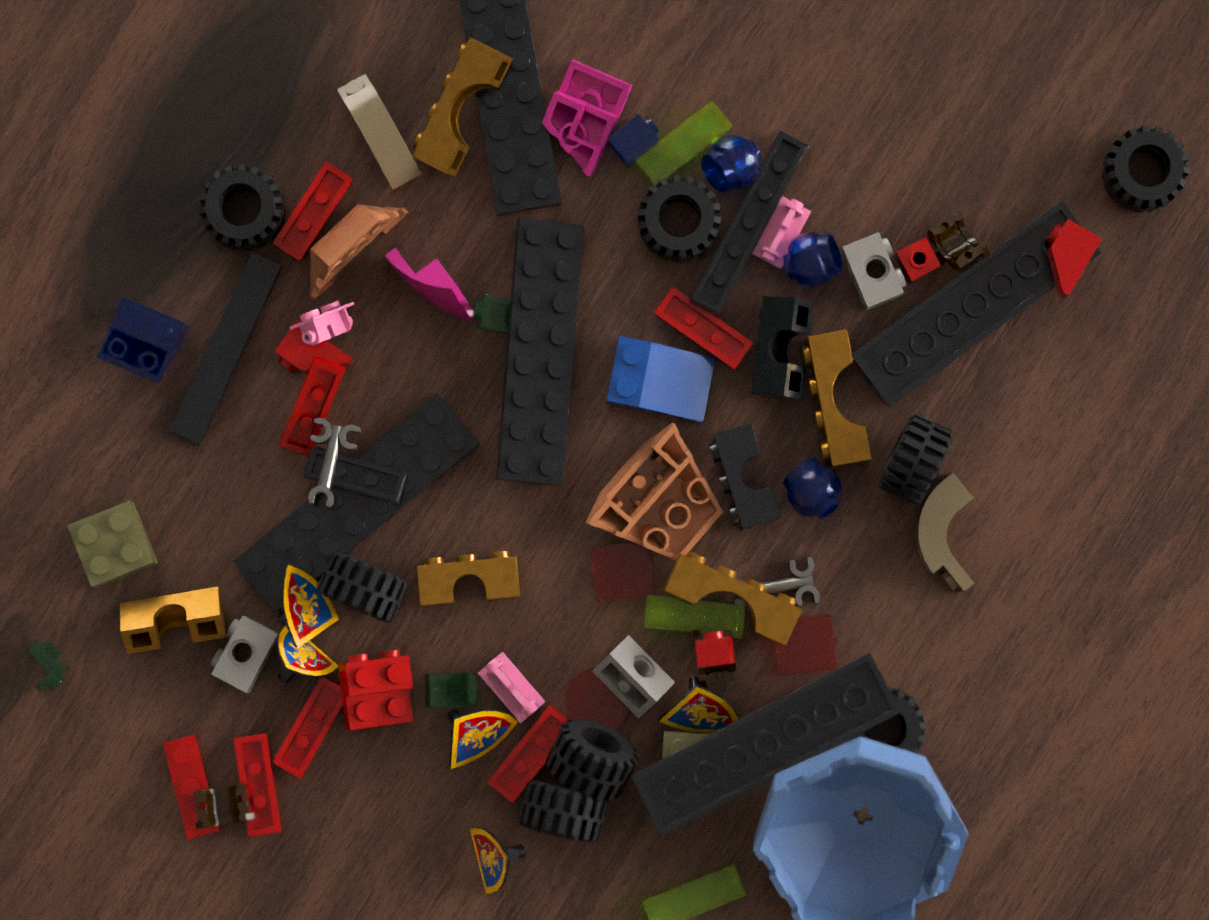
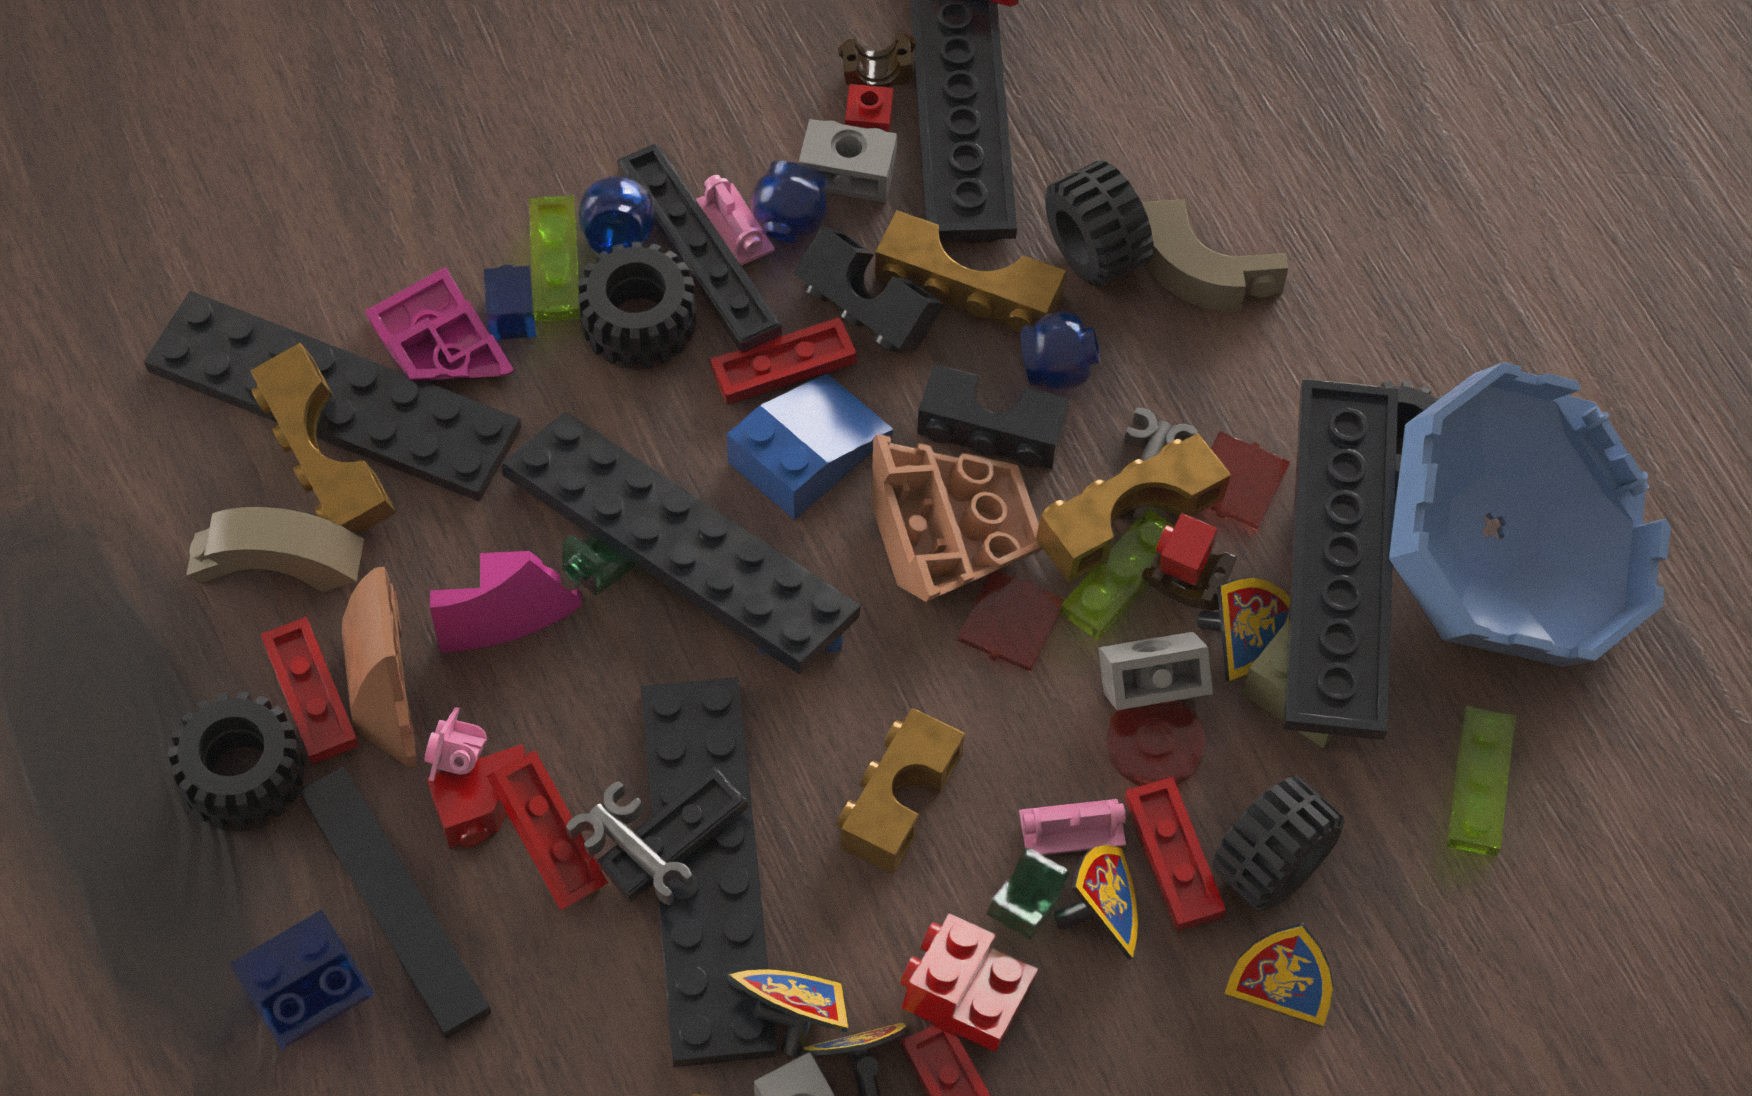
camera: 55 degrees left, 25 degrees down
(362, 587) = (822, 904): black tyre -> none
(592, 759) = (1232, 766): black tyre -> none

